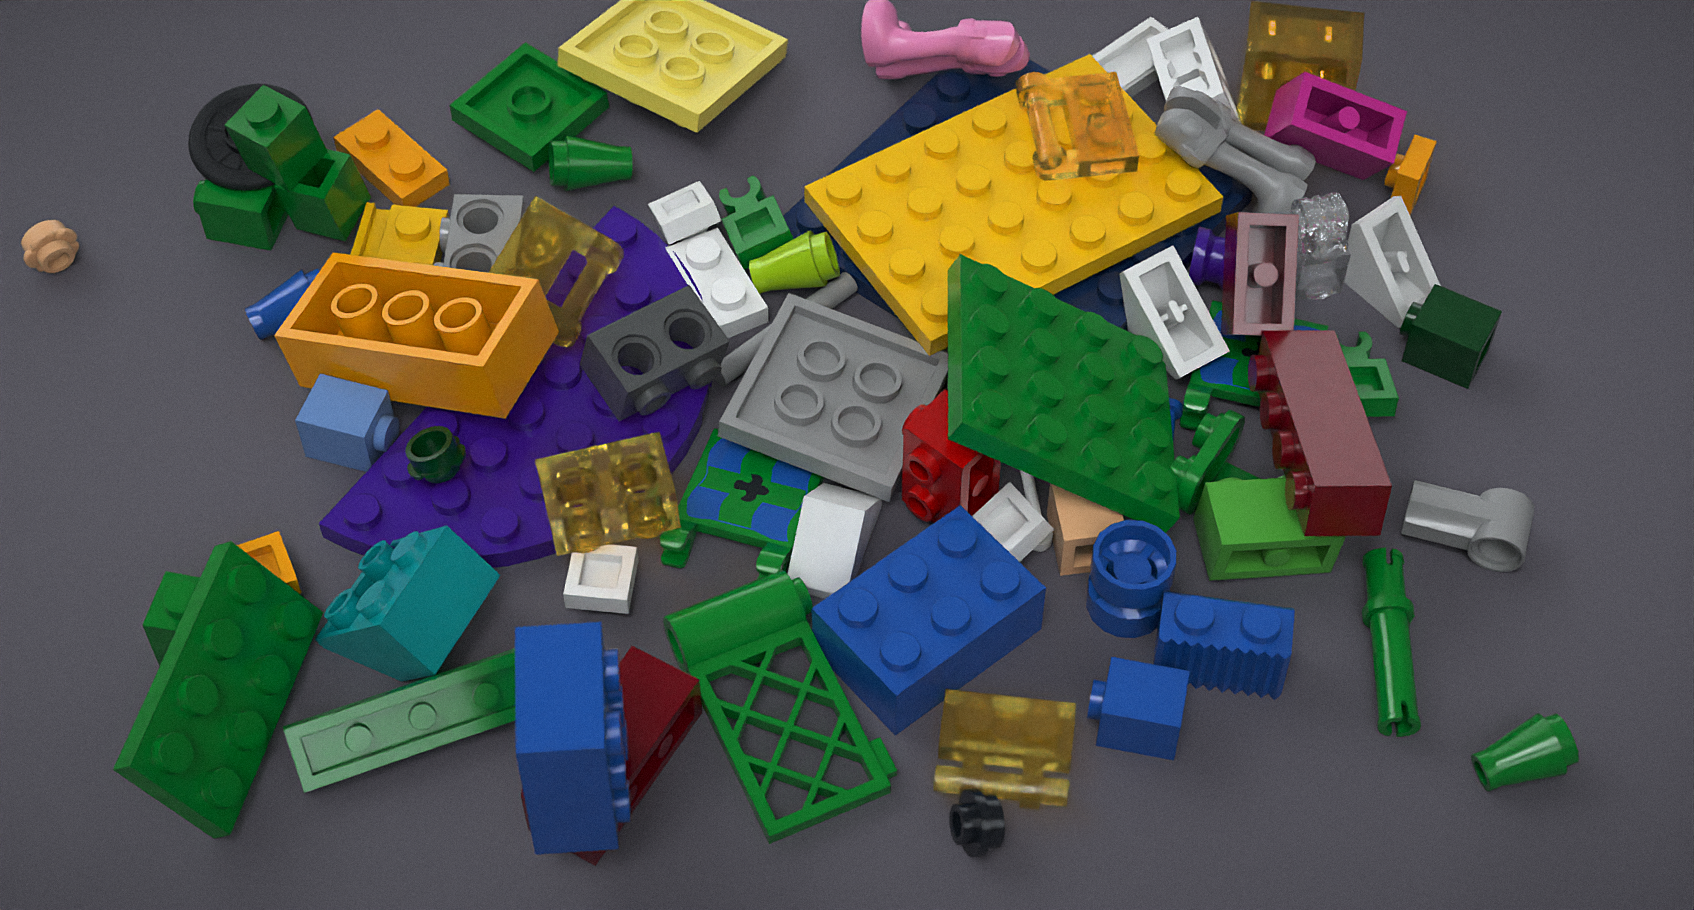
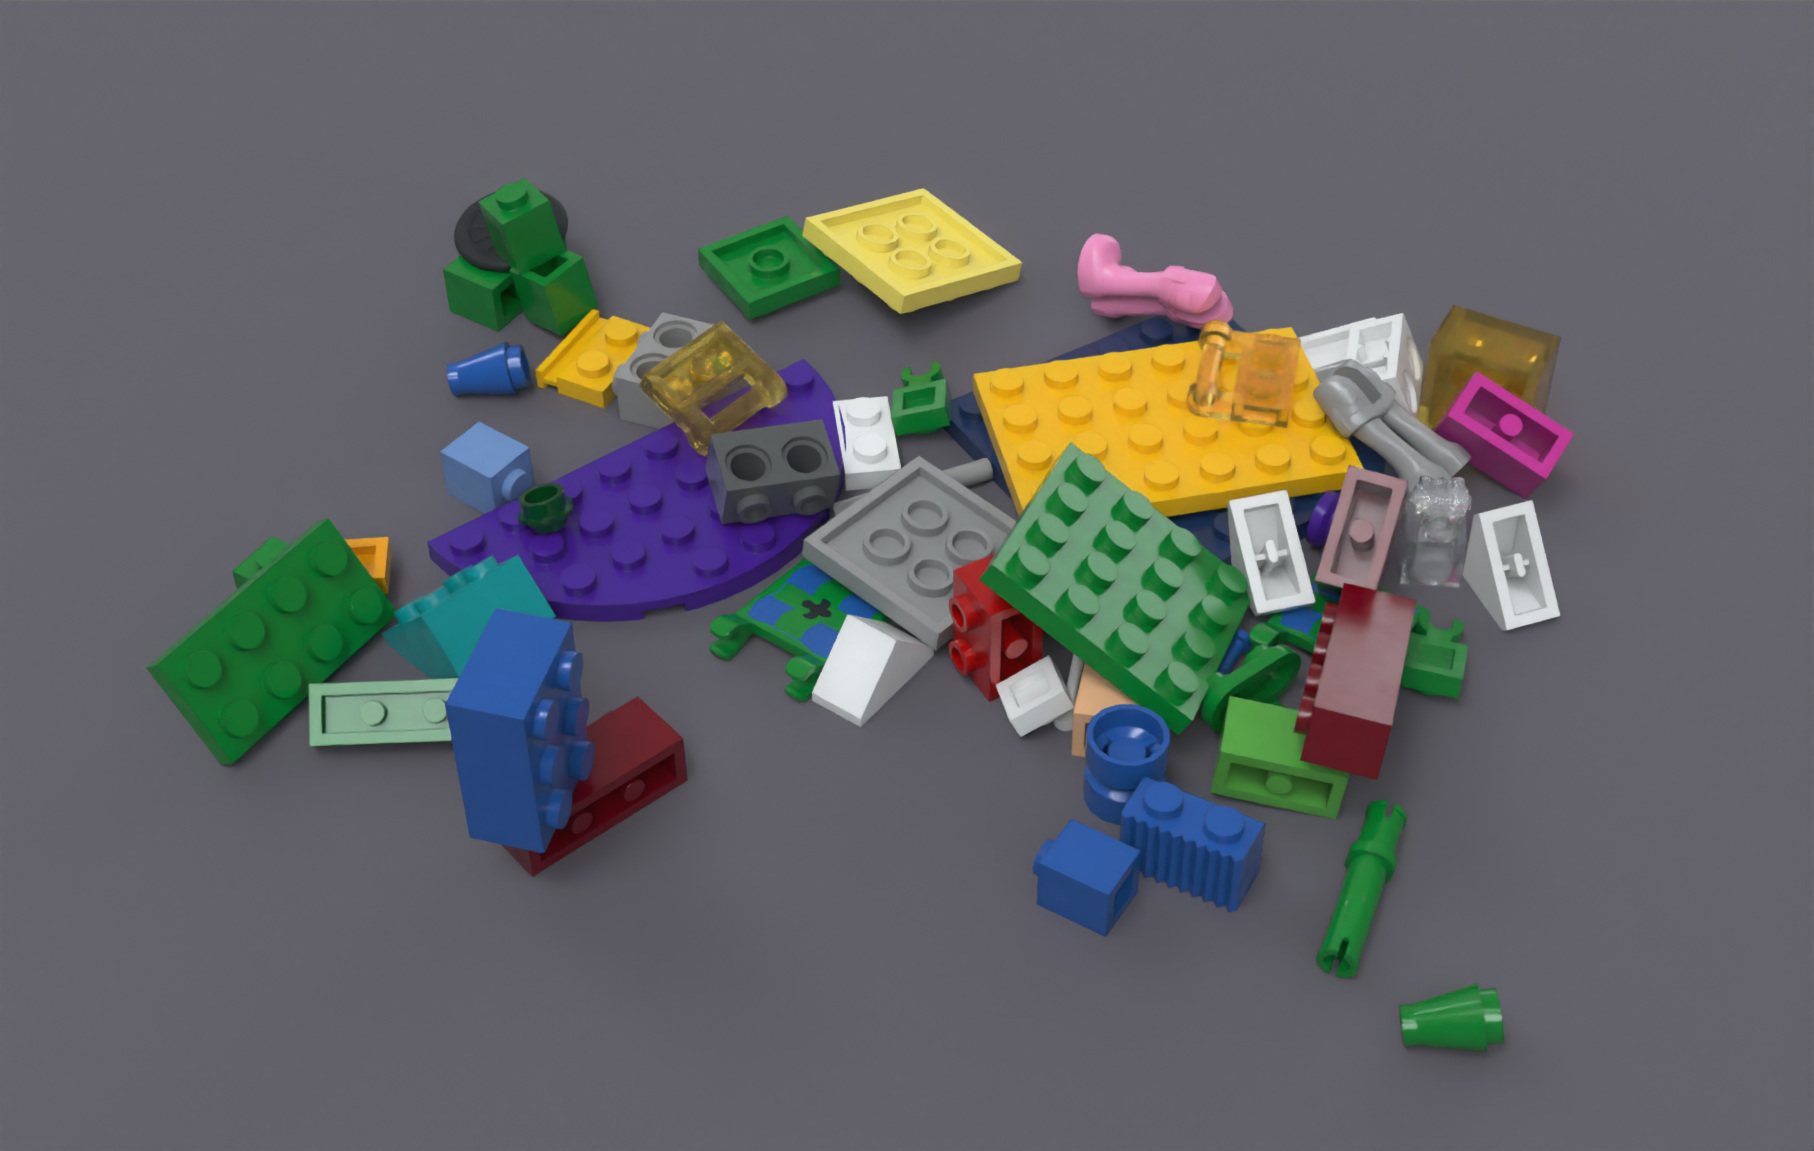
camera: 20 degrees right, 10 degrees down
(49, 246) = (315, 283): light nougat plate -> none
(392, 160) = (631, 283): light orange plate -> none
(420, 332) = (578, 407): light orange brick -> none
(587, 163) = (796, 320): green cone -> none
(602, 579) = (646, 644): white plate -> none
(605, 484) = (675, 570): clear yellow brick -> none
(685, 213) = (862, 378): white plate -> none
(755, 626) = (747, 721): green piece -> none
(798, 264) = (944, 439): lime cone -> none
(928, 618) = (921, 750): blue brick -> none
(977, 822) = (886, 930): black plate -> none
(1008, 734) = (954, 867): clear yellow plate -> none
(1411, 171) = (1567, 499): light orange plate -> none
(1449, 335) = (1543, 642): dark green brick -> none
(1489, 526) = (1506, 816): light grey piece -> none

